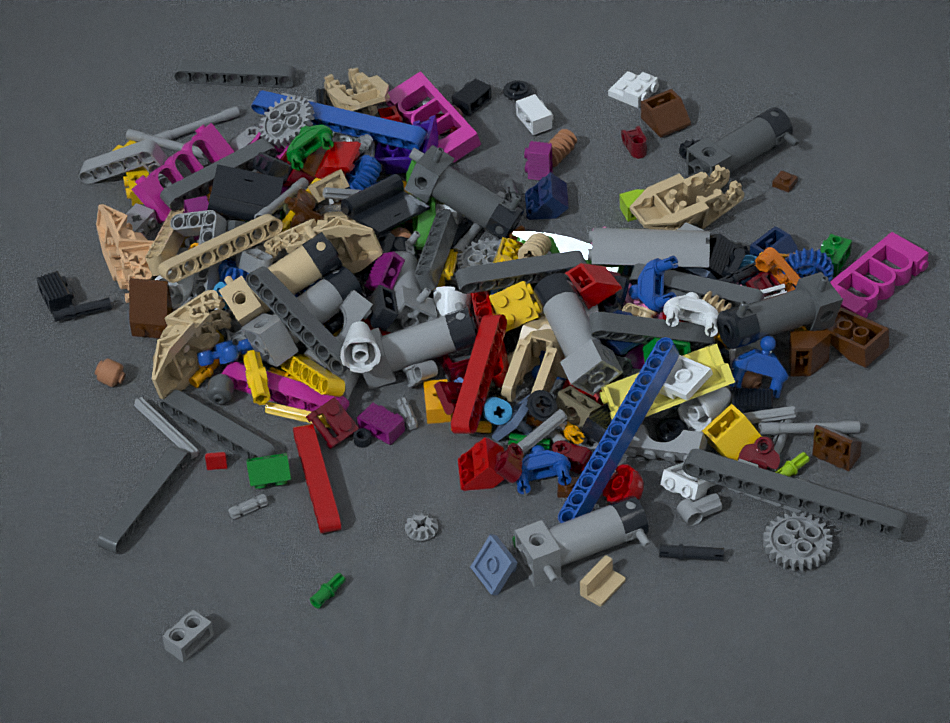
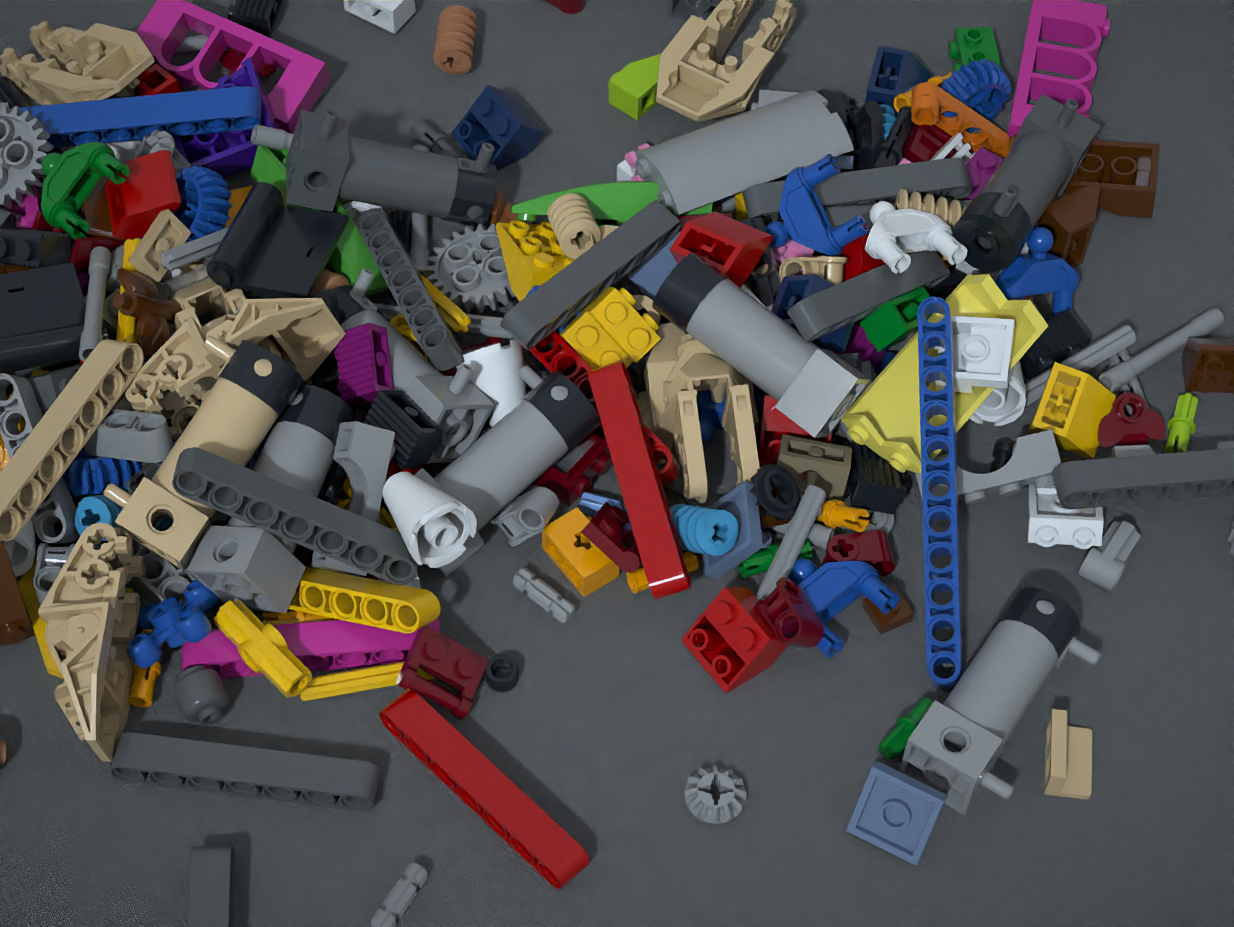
camera: 35 degrees left, 10 degrees up
(165, 427) = (147, 812): light grey axle -> none
(216, 460) = (281, 834): red slope -> none
(268, 470) = (396, 813): green brick -> none
(381, 423) = (518, 633): magenta brick -> none
(539, 160) = (448, 72): magenta brick -> none
(623, 484) = (988, 572): red cylinder -> none
(672, 424) = (982, 441): black gear -> none
(691, 552) = (1143, 643): black pin -> none

